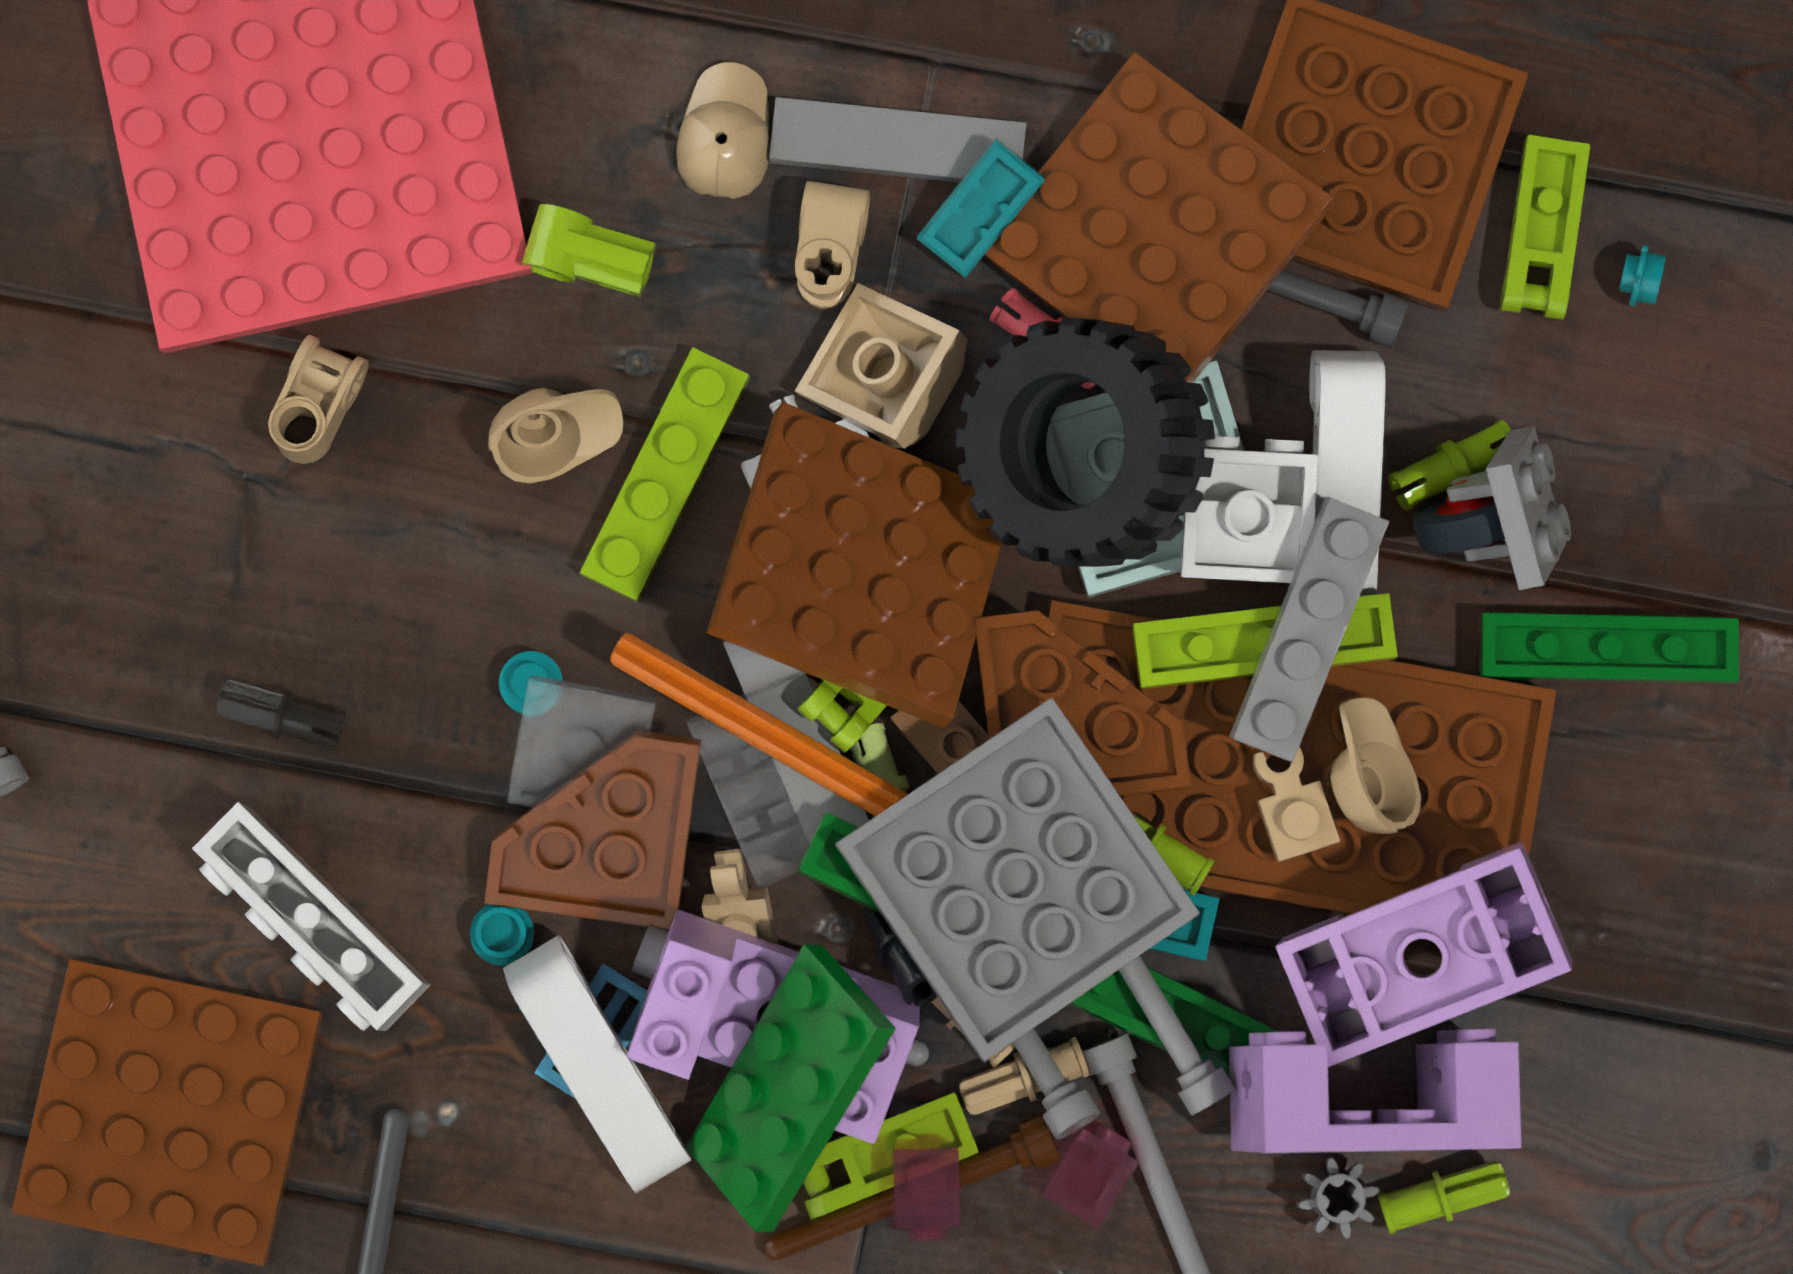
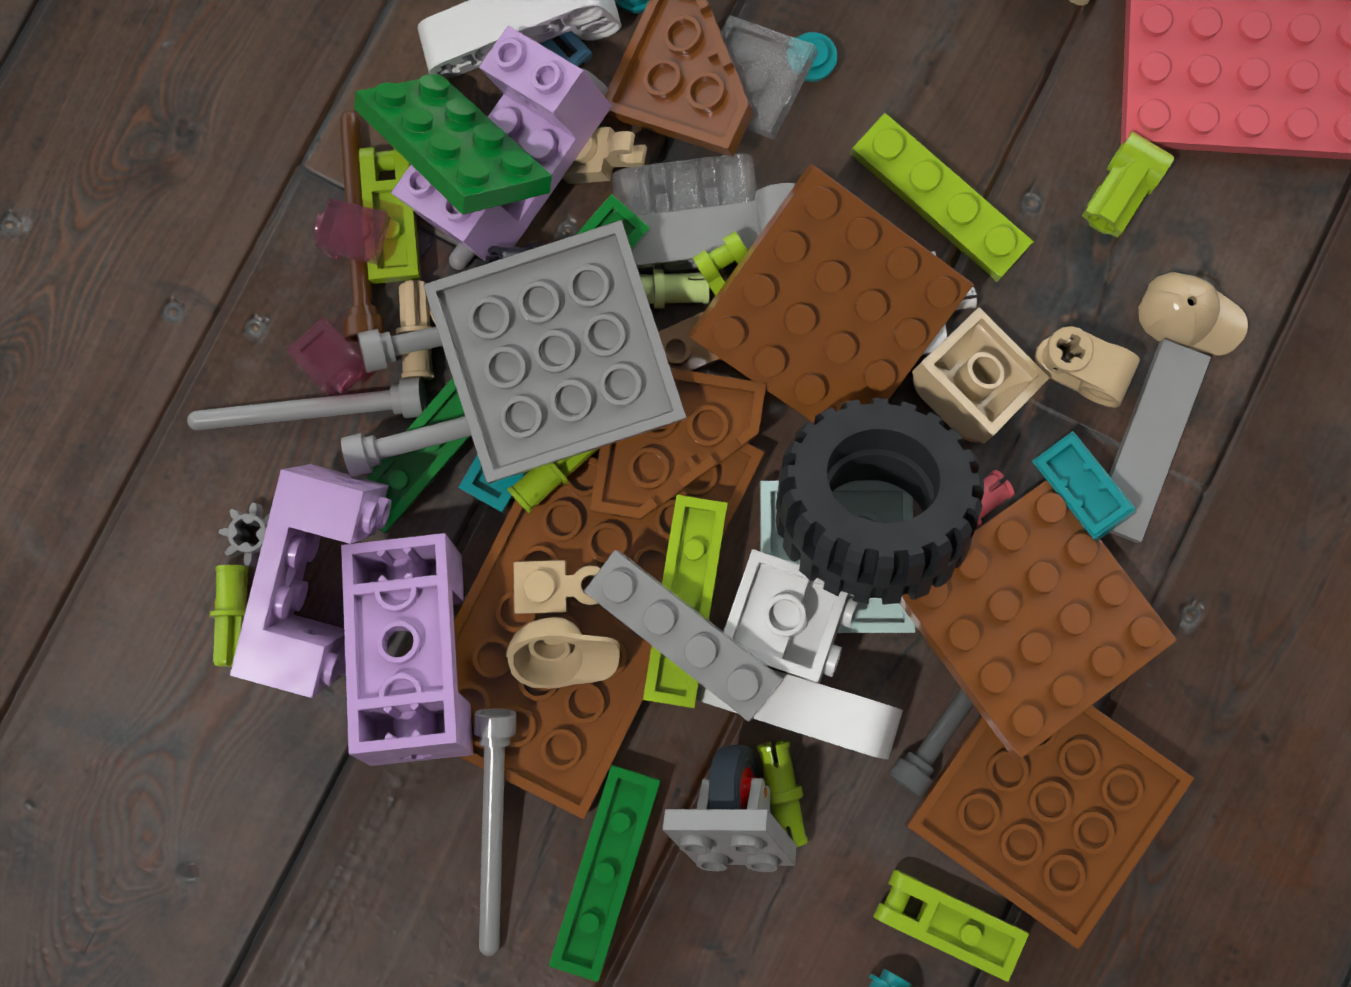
camera: 110 degrees right, 0 degrees up
(573, 431) = (993, 142): tan cap -> none
(754, 725) = (731, 195): orange axle -> none
(1486, 823) = (494, 731): none -> light grey piece

